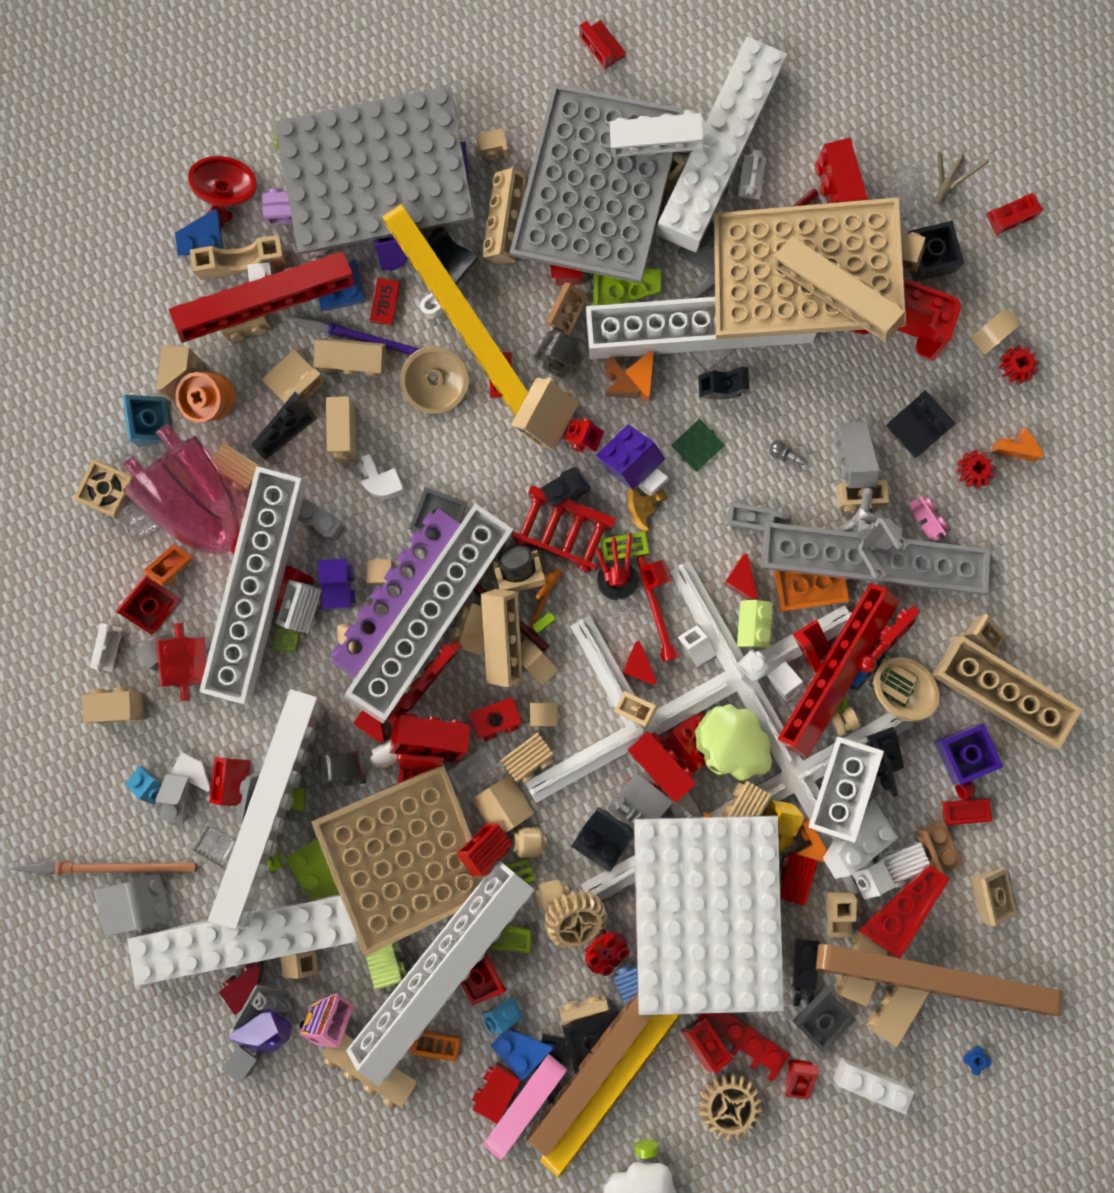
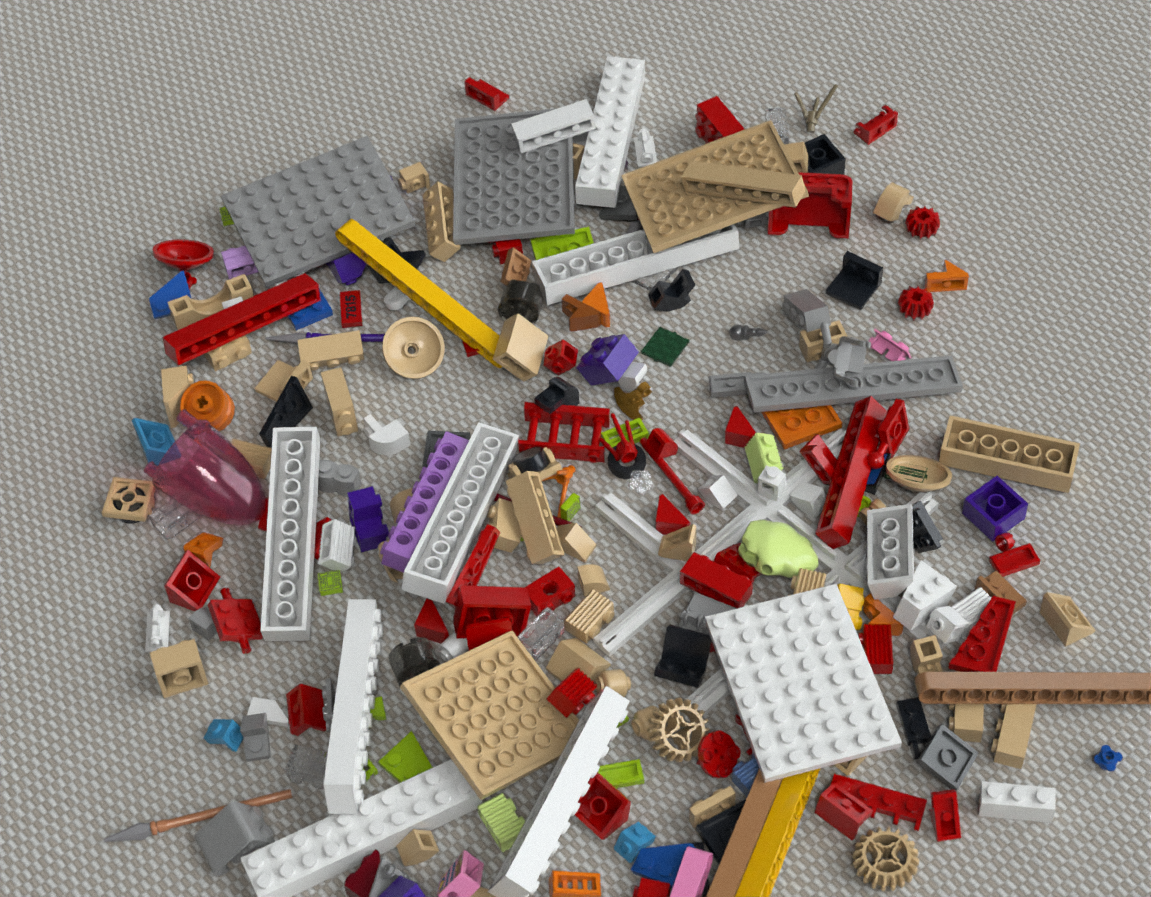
camera: 15 degrees left, 30 degrees down
(985, 633) = (972, 410): tan slope -> none

